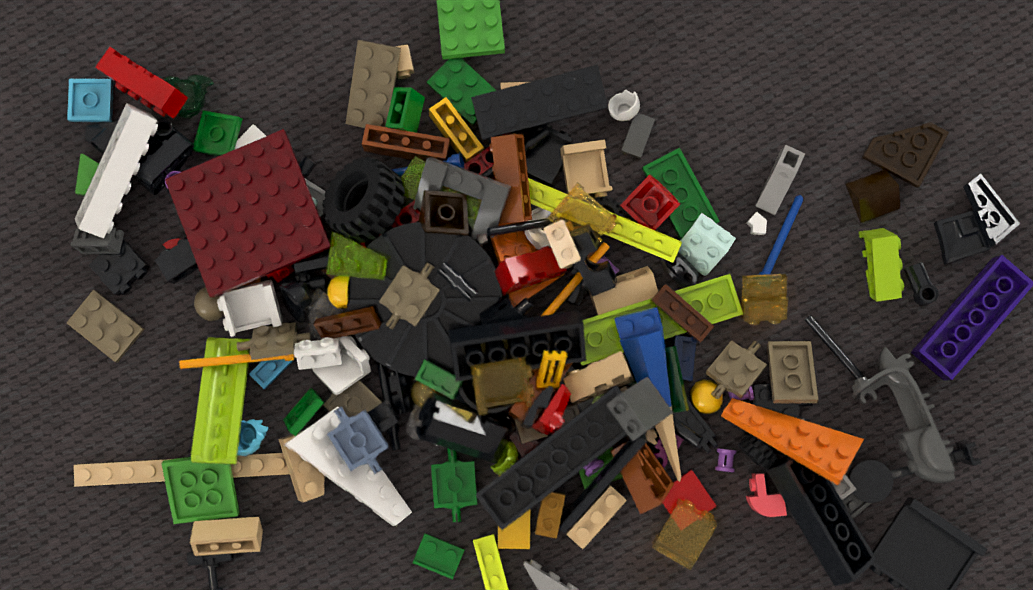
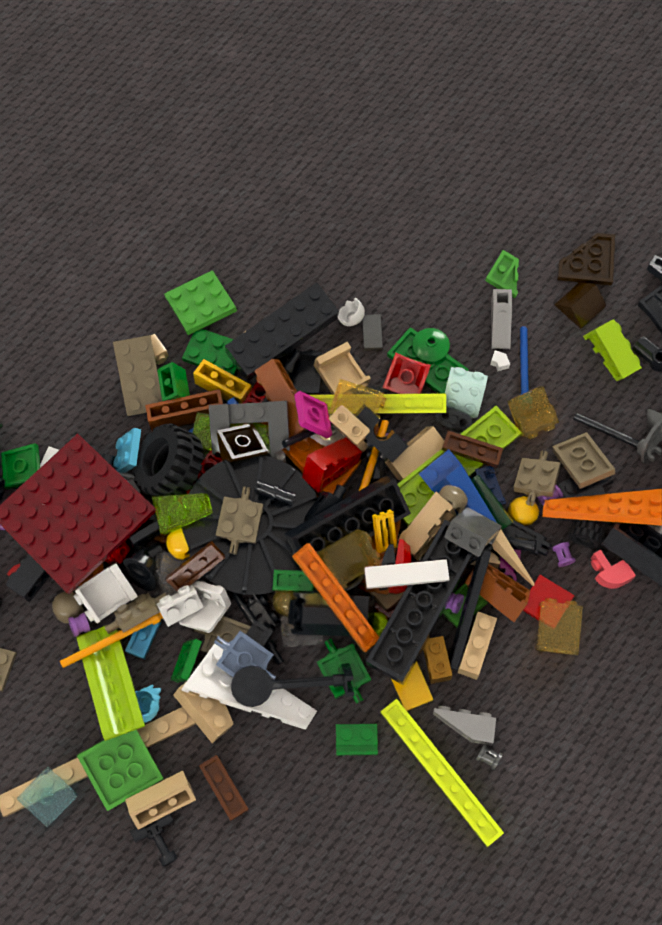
camera: 20 degrees left, 15 degrees down
(121, 487) = (47, 796): none -> clear light blue plate
(213, 328) = (79, 624): none -> medium lavender wheel
(292, 548) = (223, 787): none -> reddish brown plate
(329, 166) = (127, 451): none -> medium azure plate
(357, 471) = (253, 684): none -> black piece
(471, 419) = (336, 597): none -> orange tile
(531, 212) = (313, 414): none -> dark pink plate
(551, 427) = (406, 574): none -> white tile
(637, 364) = (455, 497): none -> dark tan hair
(685, 185) = (427, 351): none -> green dish
(808, 127) = (504, 273): none -> bright green wing

